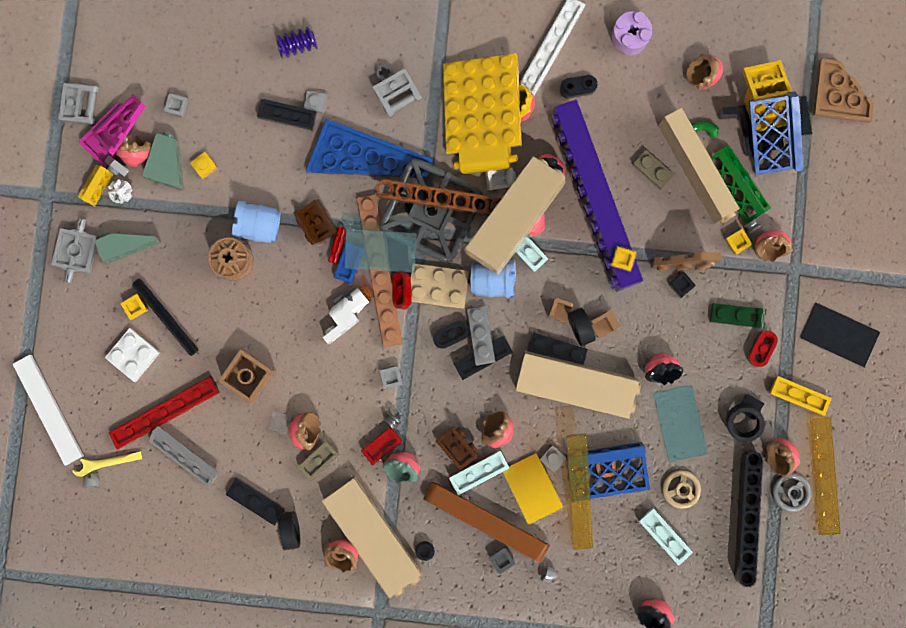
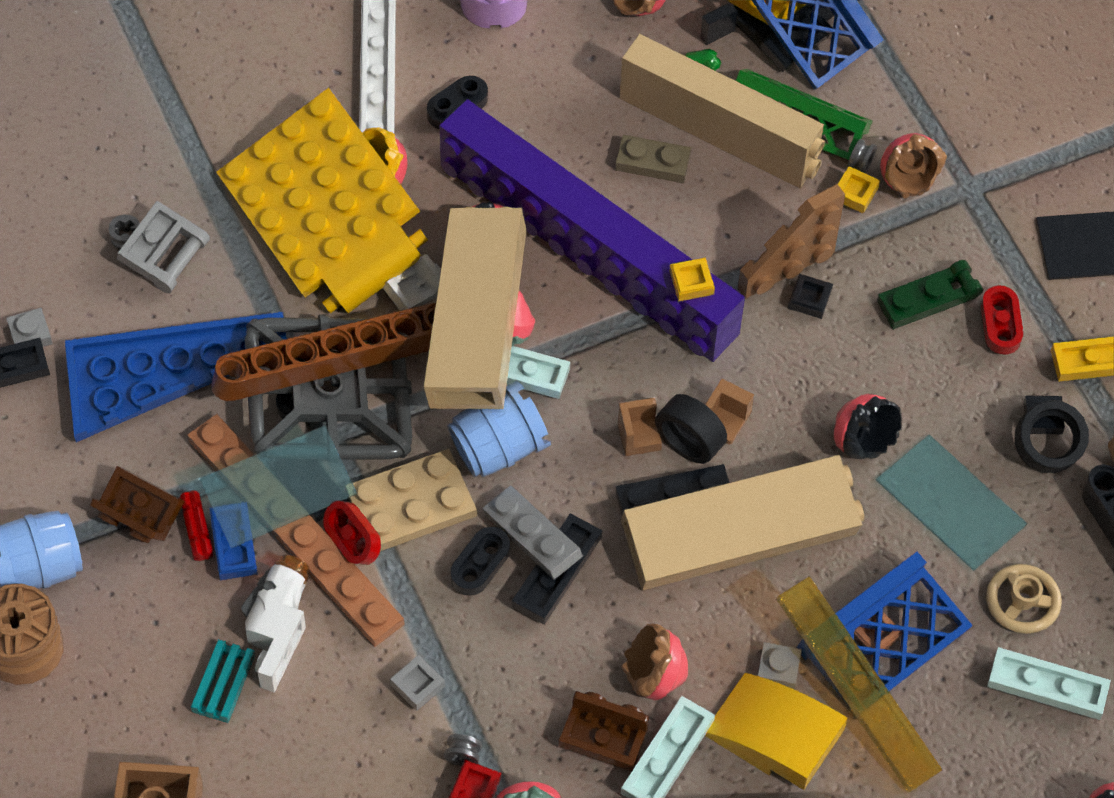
camera: 35 degrees left, 25 degrees down
(304, 322) = (233, 652): none -> teal tile

